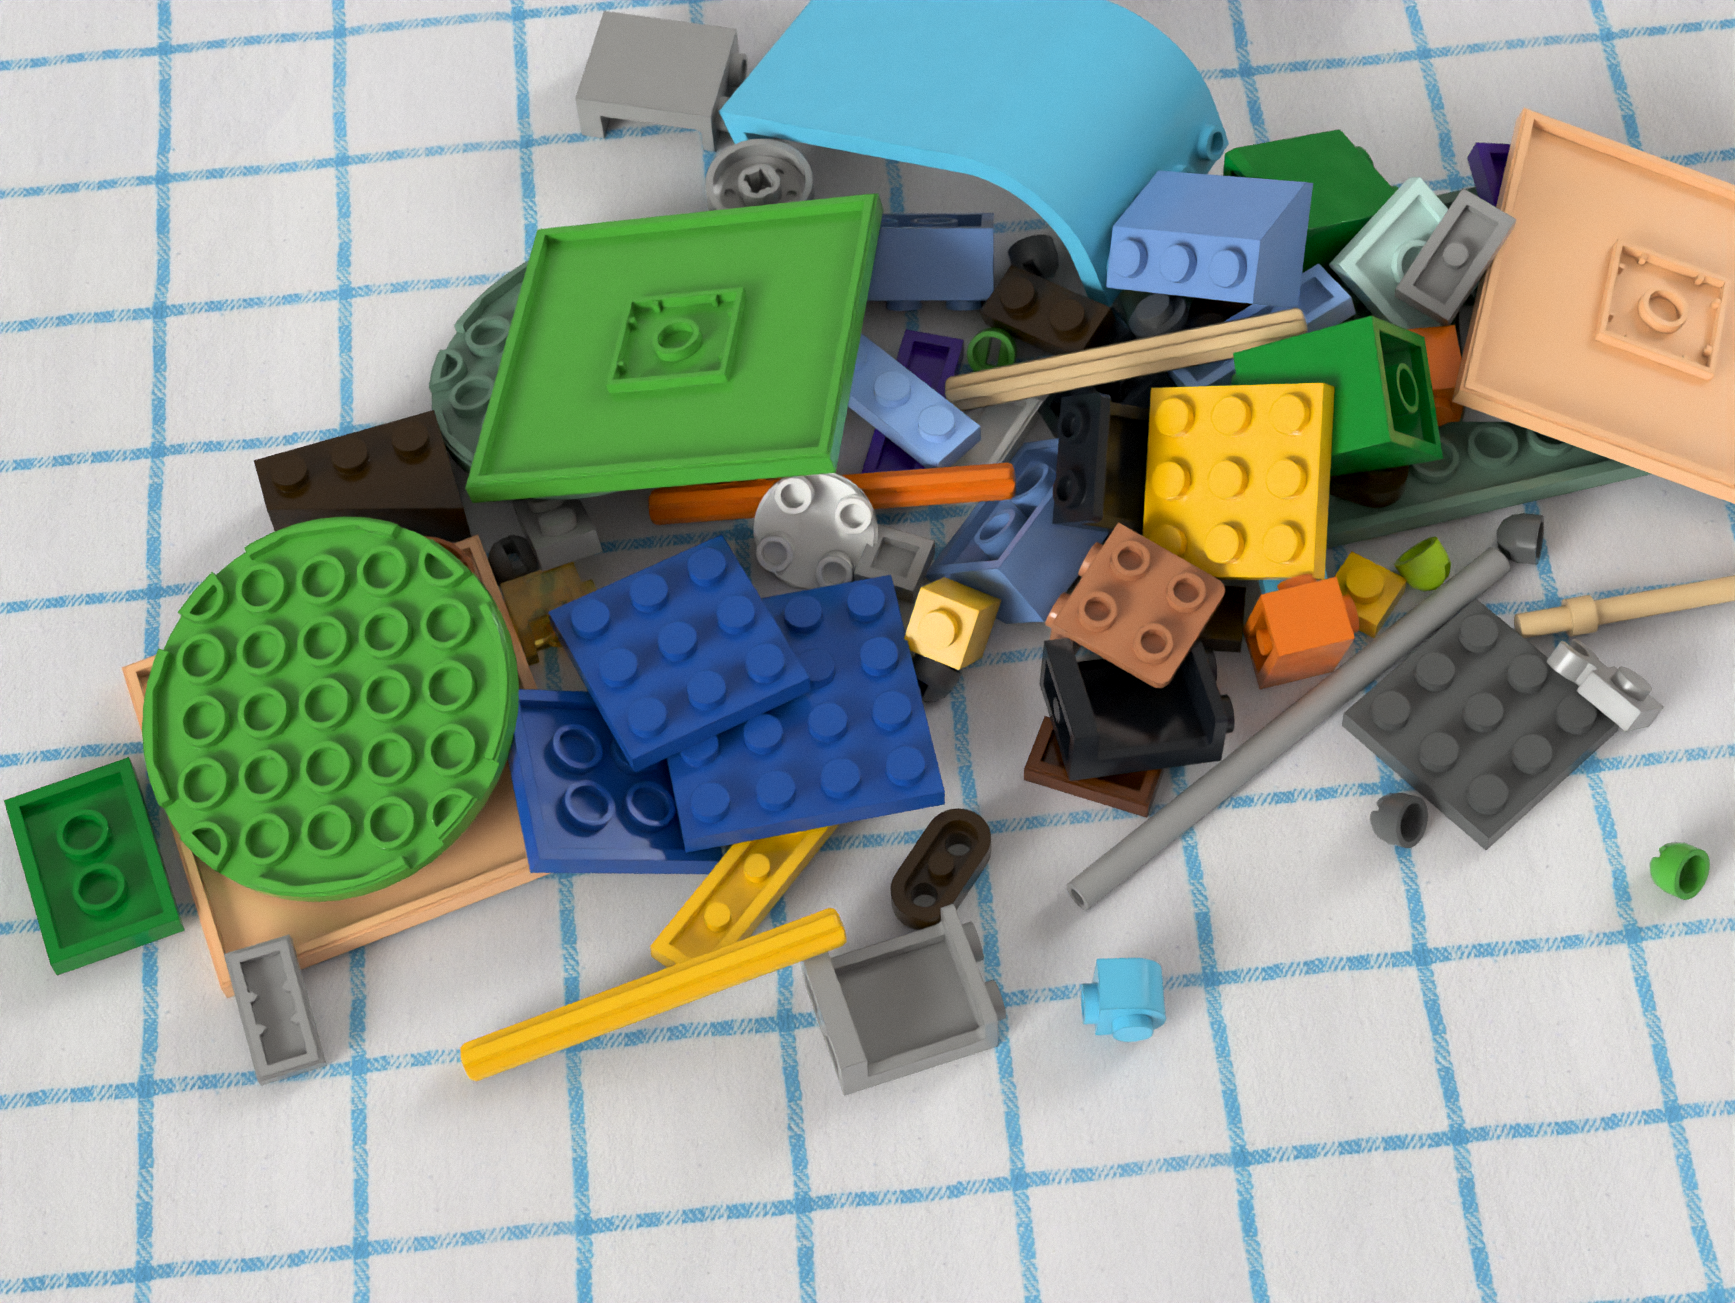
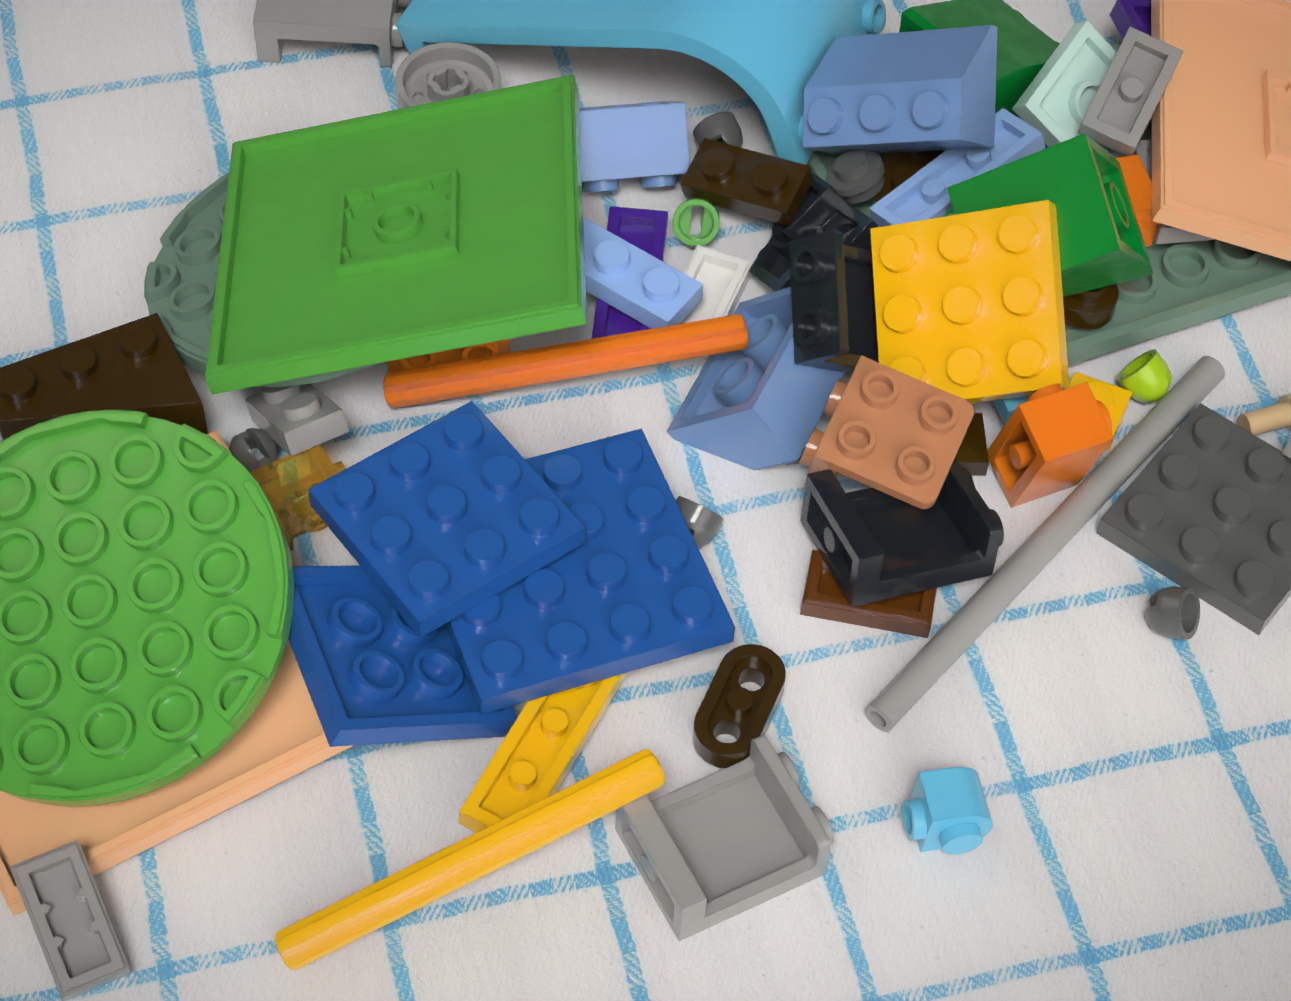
camera: 15 degrees left, 5 degrees down
(813, 530) = (556, 394): white dish -> none
(901, 556) = (638, 409): light grey plate -> none
(951, 623) = (708, 469): yellow brick -> none
(1121, 360) = (828, 211): tan axle -> none
(1521, 537) = (1229, 345): dark grey hinge -> none

